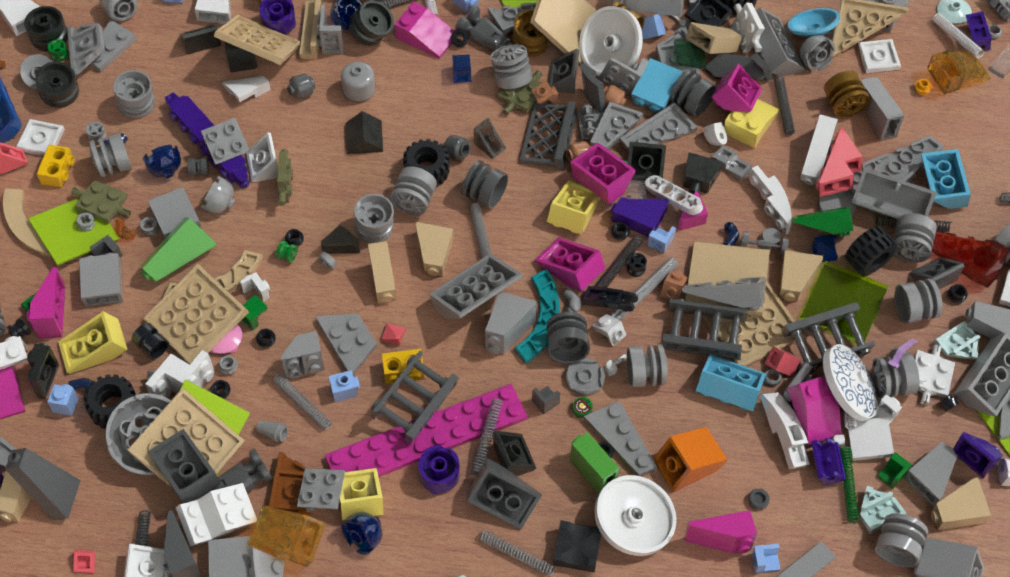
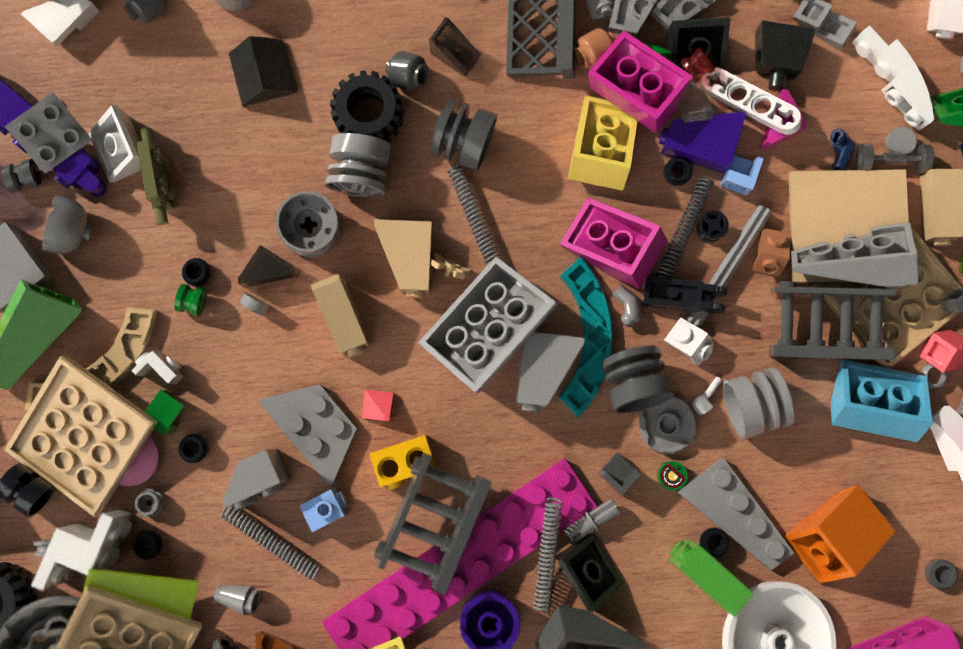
camera: 10 degrees left, 25 degrees up
(459, 259) = (450, 266): none -> tan piece
(523, 423) = (592, 521): none -> light grey axle
(643, 170) = (698, 65): none -> clear red wheel

